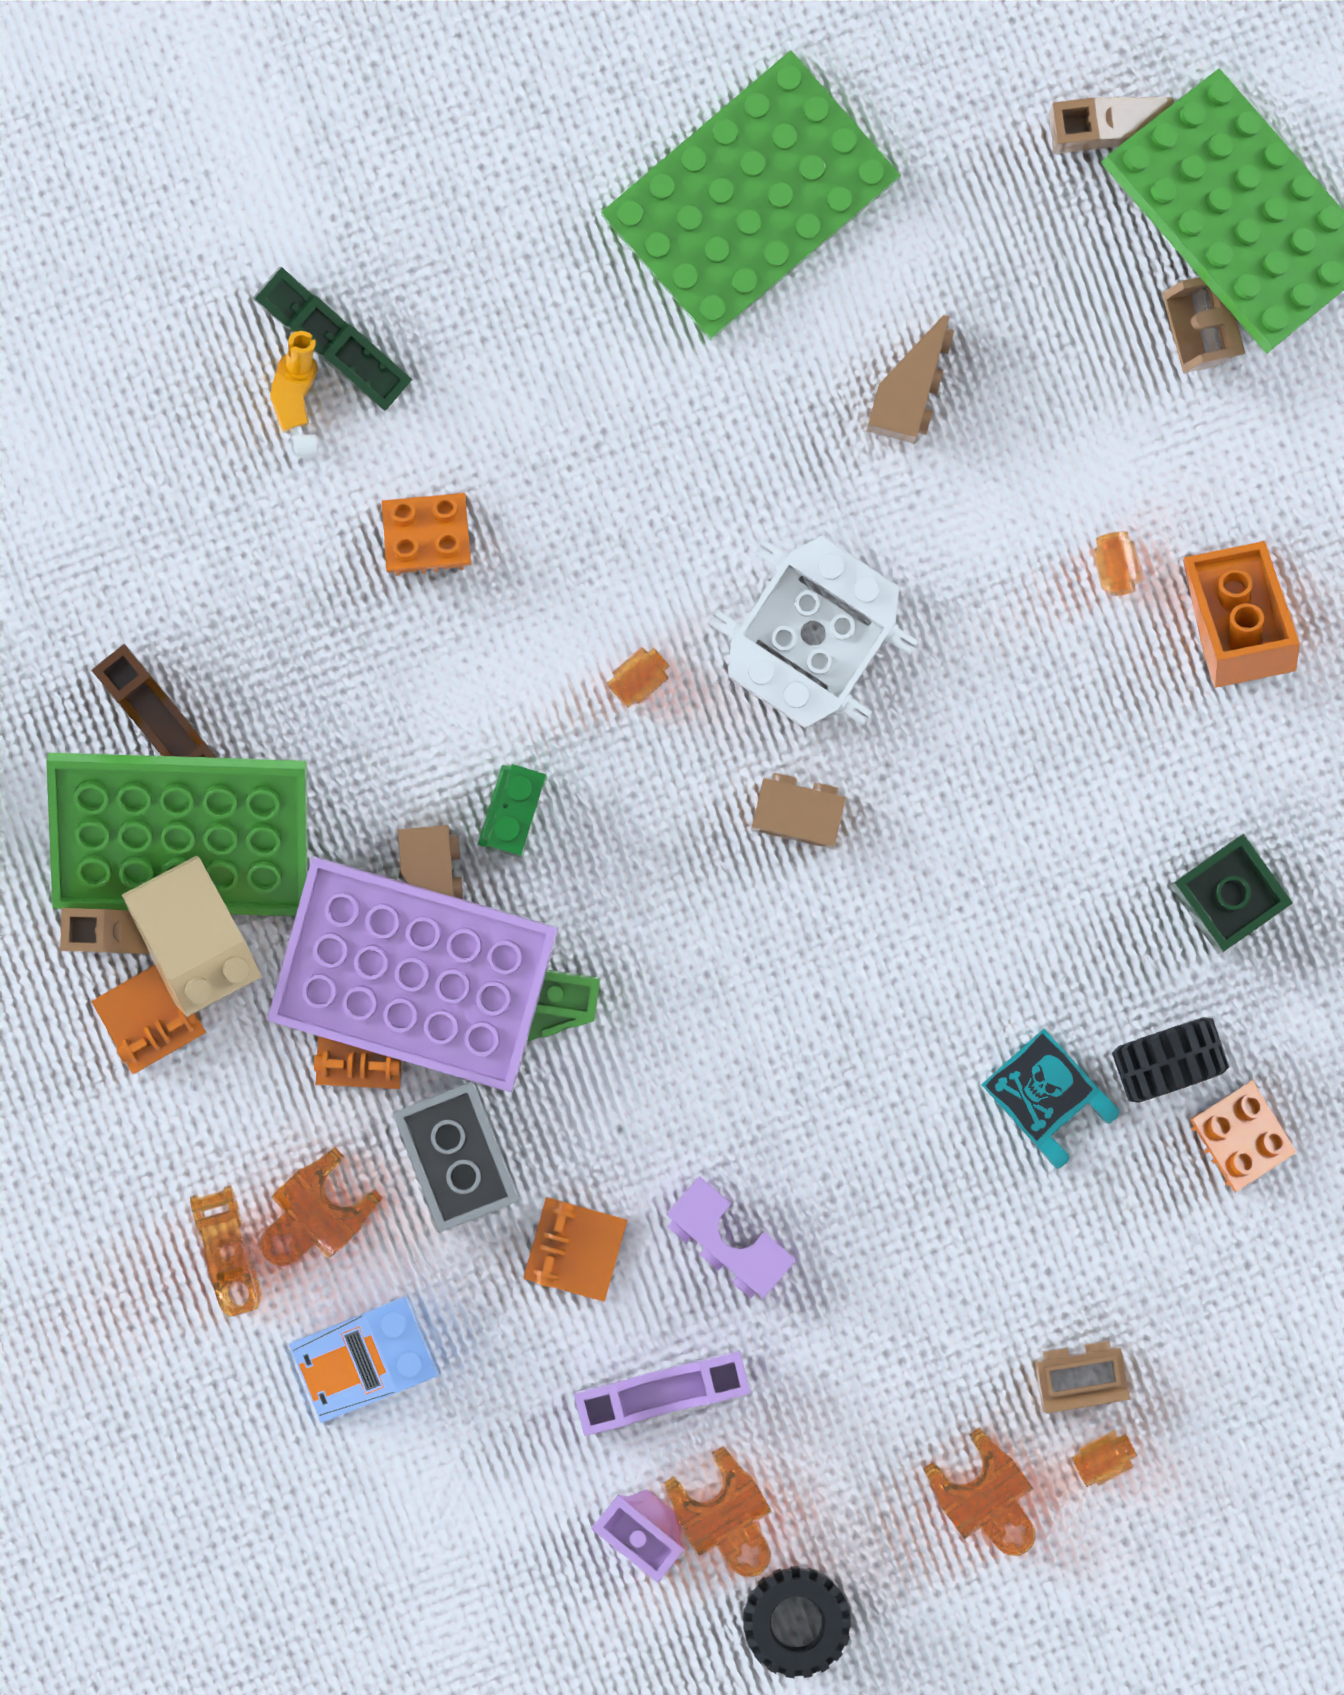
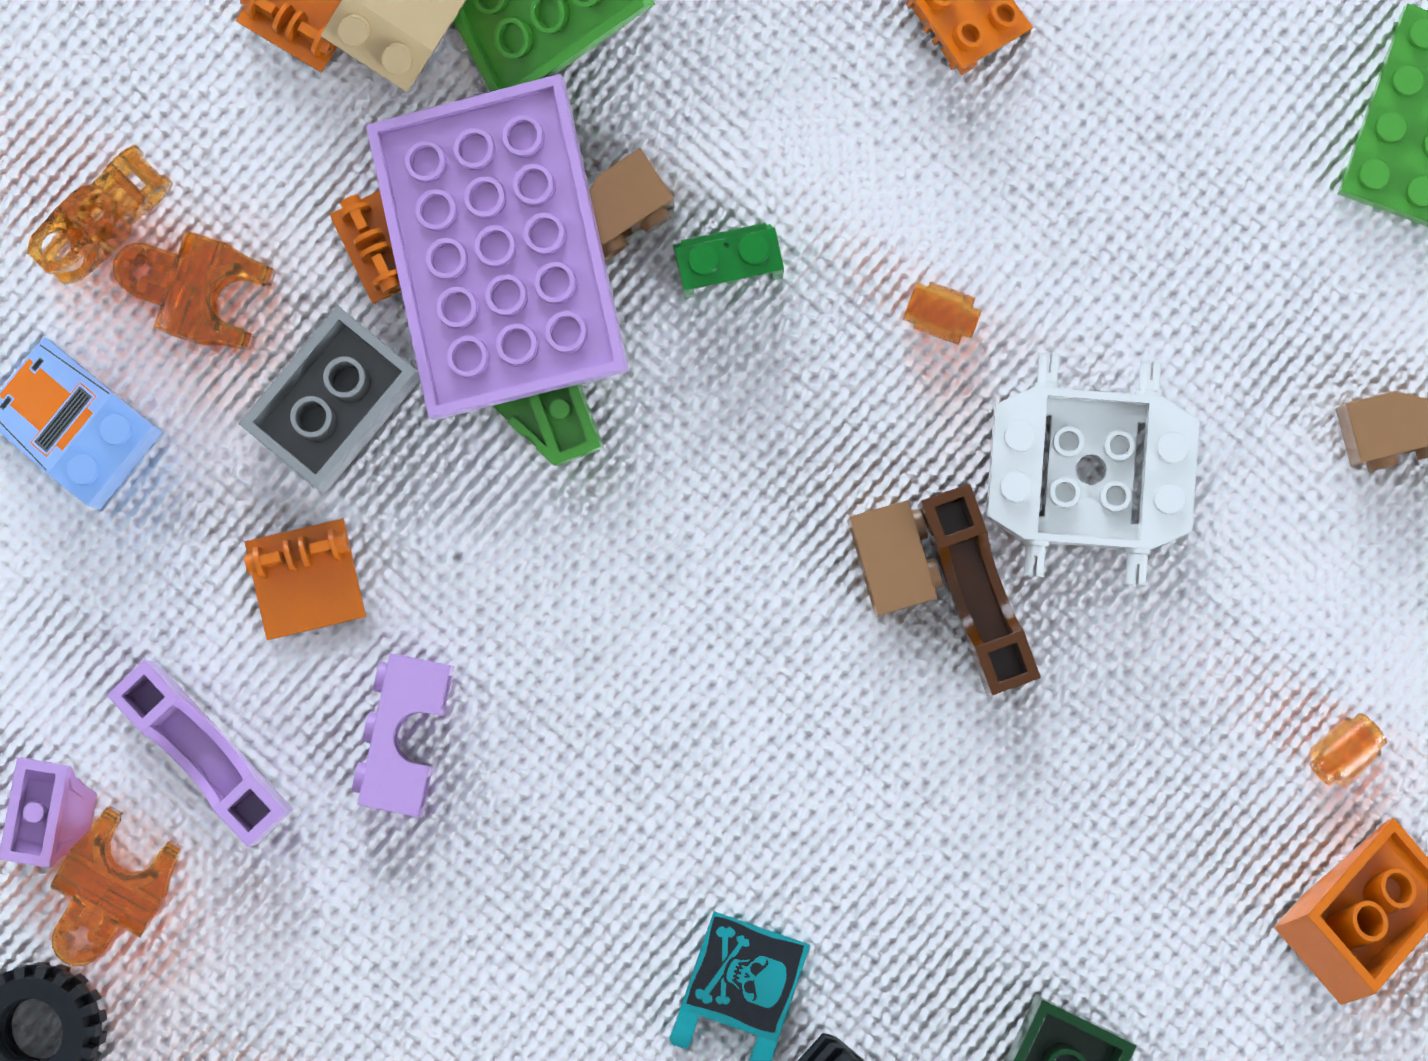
camera: 65 degrees right, 0 degrees up
(856, 765) = (977, 591): none -> reddish brown arch

